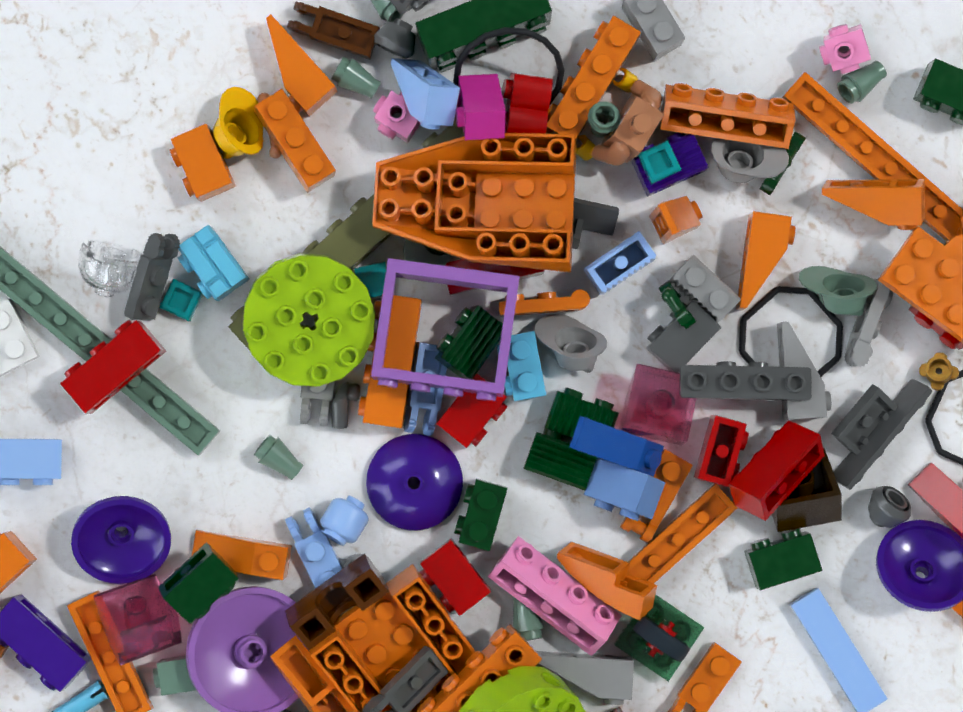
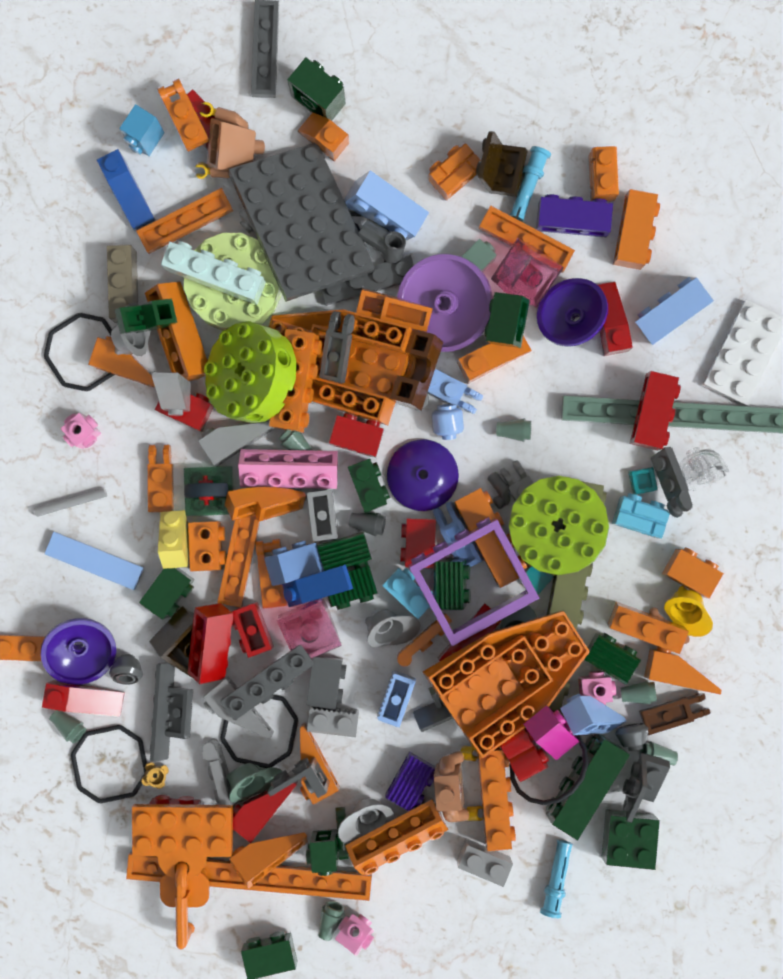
camera: 140 degrees right, 0 degrees up
(89, 485) = (615, 332): none -> red slope
(357, 135) = (611, 658): none -> dark green brick
(510, 472) = (368, 522): none -> dark grey cone
(555, 518) = (322, 515): none -> light grey brick
(605, 113) = (471, 780): sand green cone -> none
(659, 162) = (417, 778): teal tile -> none
(672, 299) = (348, 700): dark green arm -> none
(675, 218) = (382, 751): orange slope -> none
(705, 577) = (206, 546): none -> orange brick
(735, 611) = (173, 539): none -> light yellow brick
(768, 242) = (315, 778): none -> dark grey bracket
(817, 158) = (323, 852): none -> dark green brick
(856, 253) = (257, 811): none -> red slope

